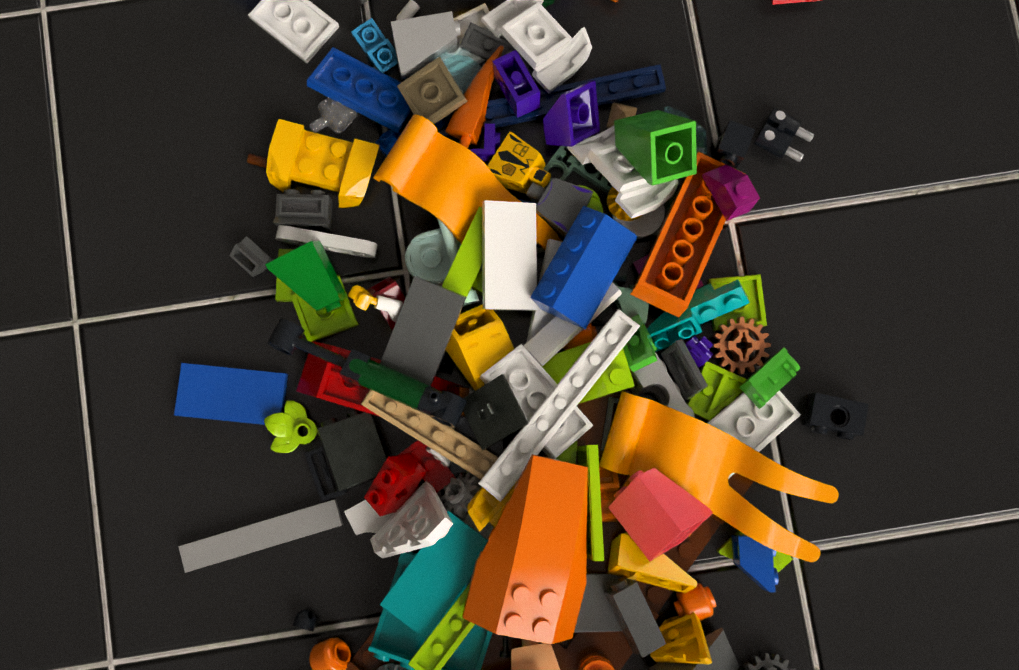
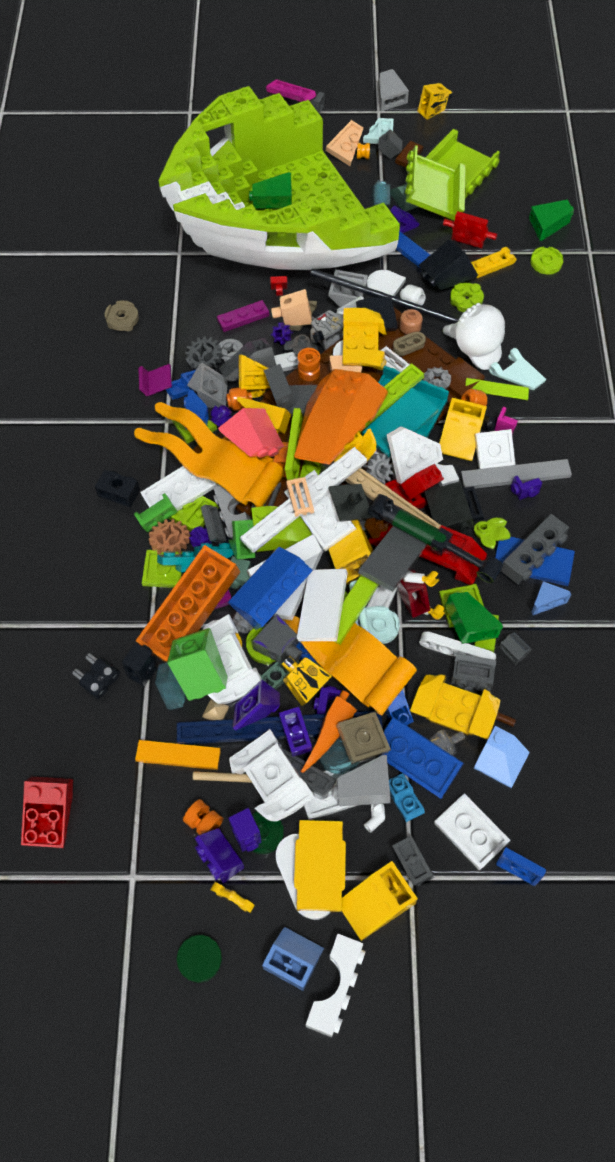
camera: 170 degrees left, 20 degrees down
(194, 427) = (551, 528): none -> dark grey brick
(209, 333) = (550, 597): none -> medium blue slope
(240, 506) = (526, 489): none -> dark purple bracket
(261, 109) = (502, 757): none -> light blue slope
(279, 623) = (505, 422): none -> dark pink panel
(293, 568) = (494, 449): none -> white tile
(345, 597) = (460, 427): none -> yellow slope
(575, 420) = (303, 510): none -> light nougat tile
(607, 37) = (229, 777): none -> tan bar
(667, 54) = (178, 755): none -> light orange tile
(714, 567) = (220, 415): none -> dark purple gear
(731, 191) = (152, 622): magenta slope -> none
(746, 618) = (209, 385): none -> light grey slope
(785, 623) = (179, 387): none -> blue slope
(834, 622) = (155, 380): none -> magenta piece

